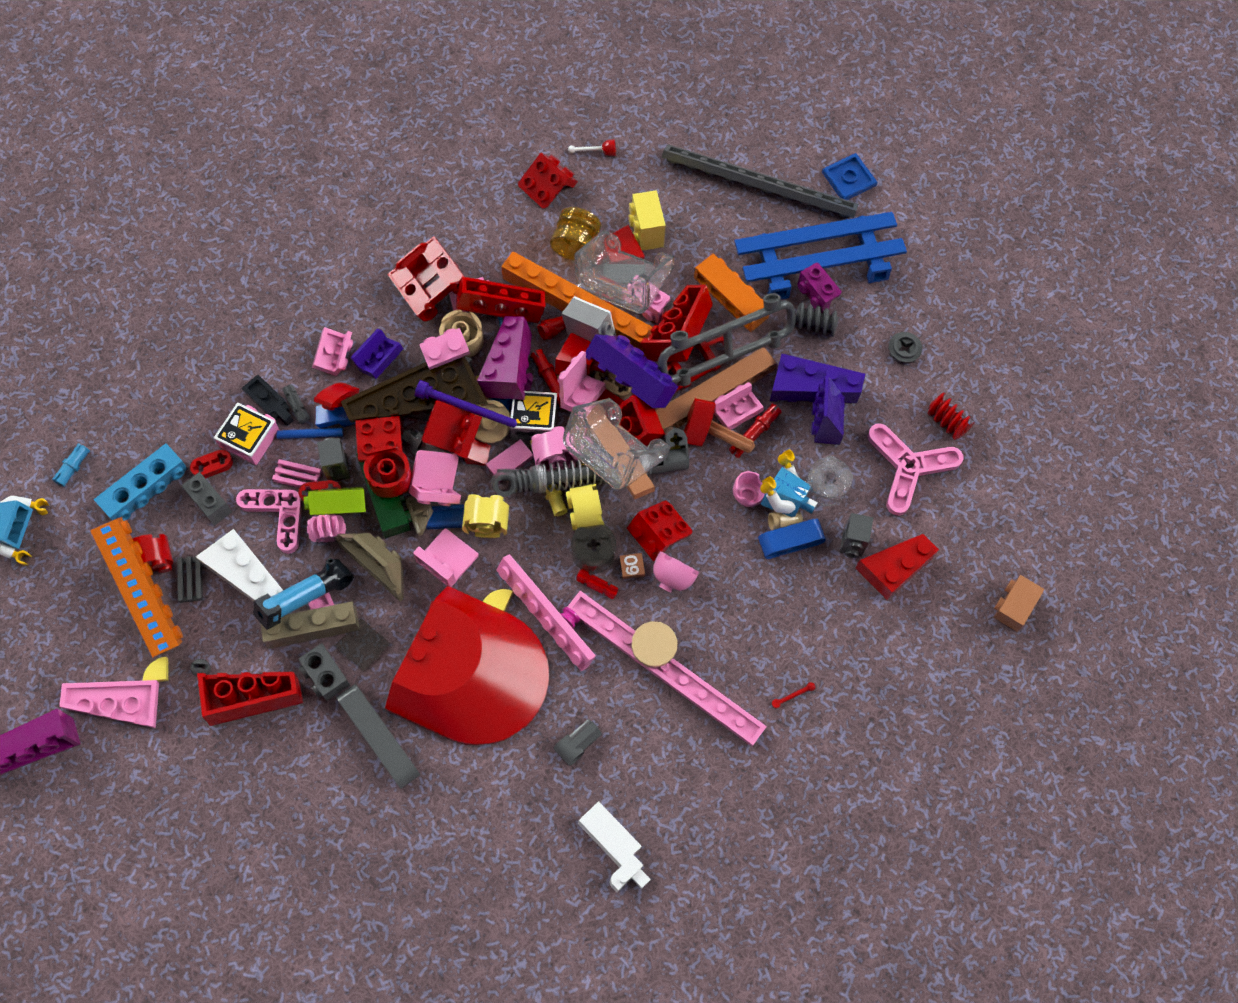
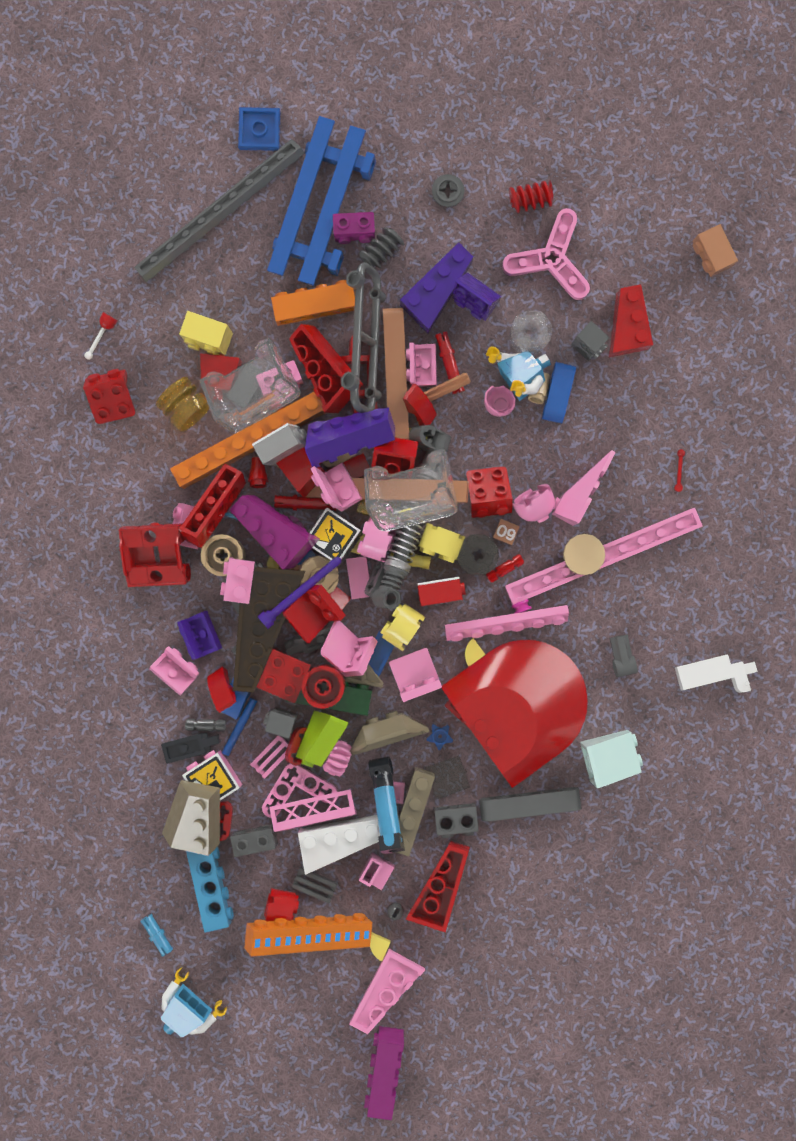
camera: 60 degrees left, 20 degrees up
(201, 434) = (194, 818): none -> dark tan wedge
(231, 625) = (376, 871): none -> bright pink piece
(256, 542) = (316, 818): none -> bright pink fence
(399, 609) = (440, 741): none -> blue plate
(468, 786) = (611, 758): none -> light aqua slope
(538, 531) = (440, 591): none -> red piece
(704, 609) = (575, 501): none -> bright pink wedge

